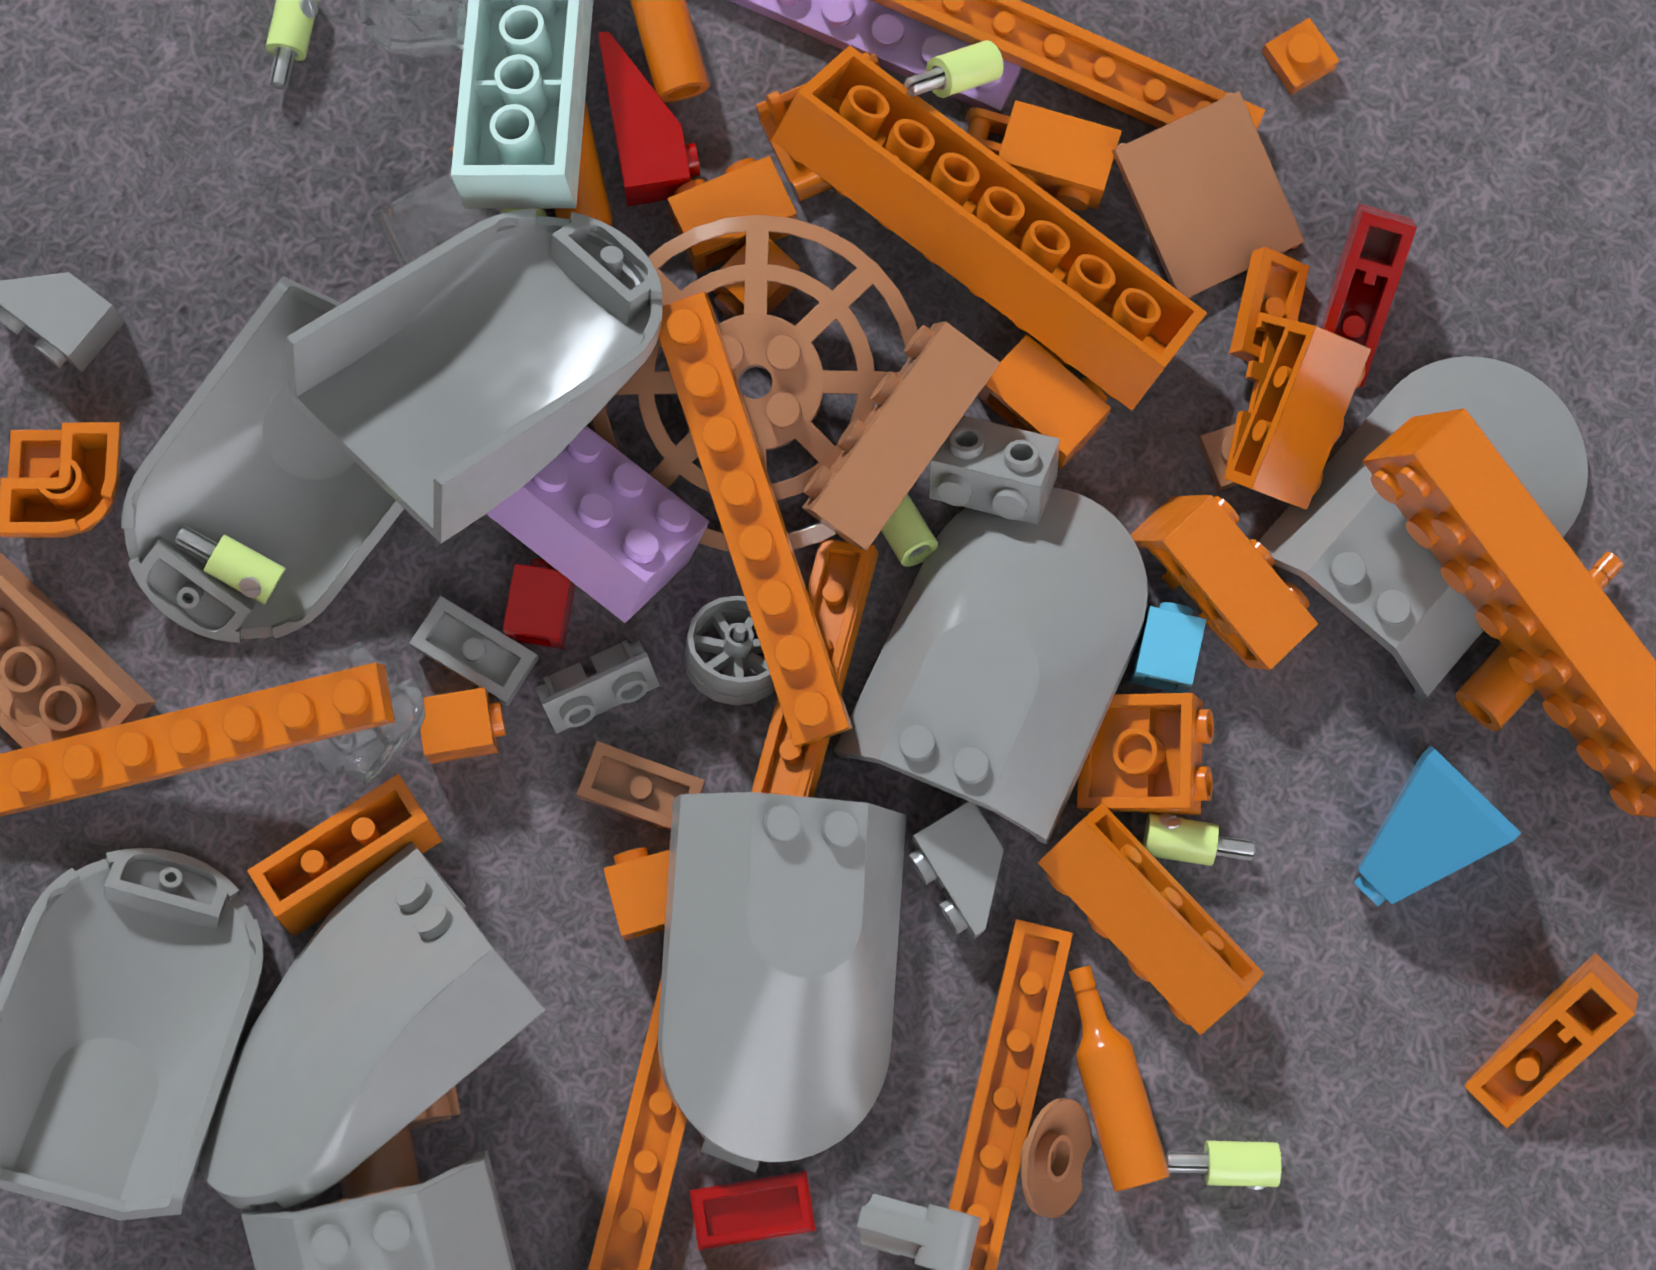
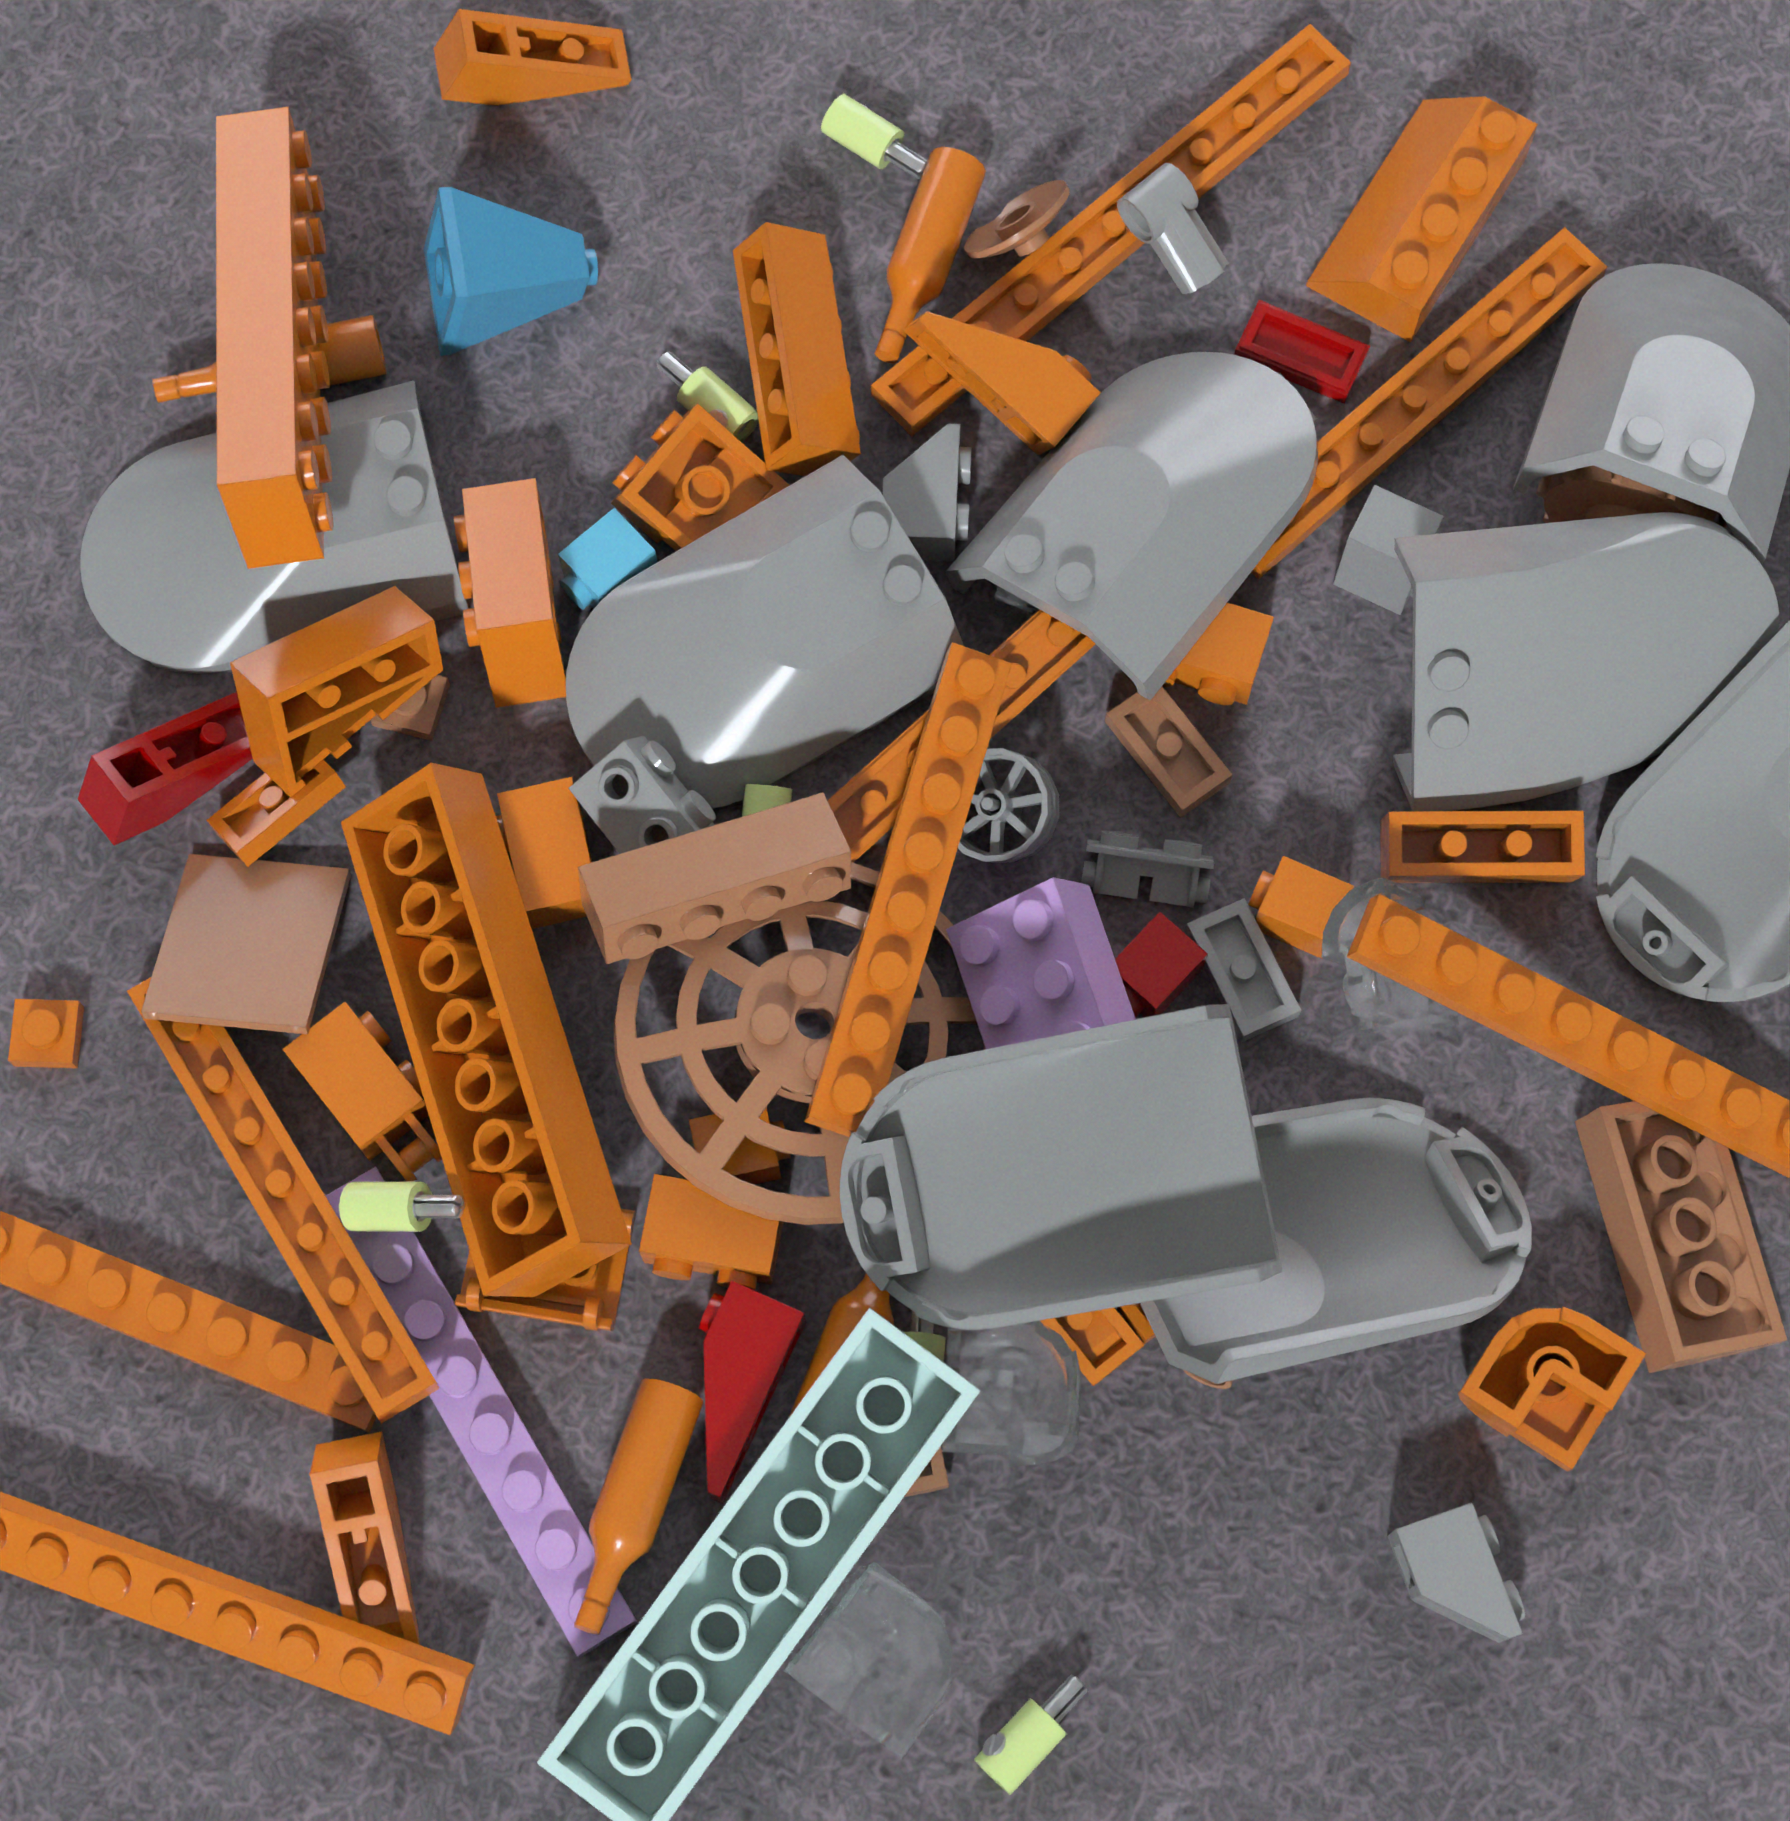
camera: 140 degrees left, 5 degrees down
(234, 564) = (1424, 1188): yellowish green piece -> none
(561, 1053) = (1369, 558): none -> light grey brick
(959, 1007) = (1016, 380): none -> orange slope

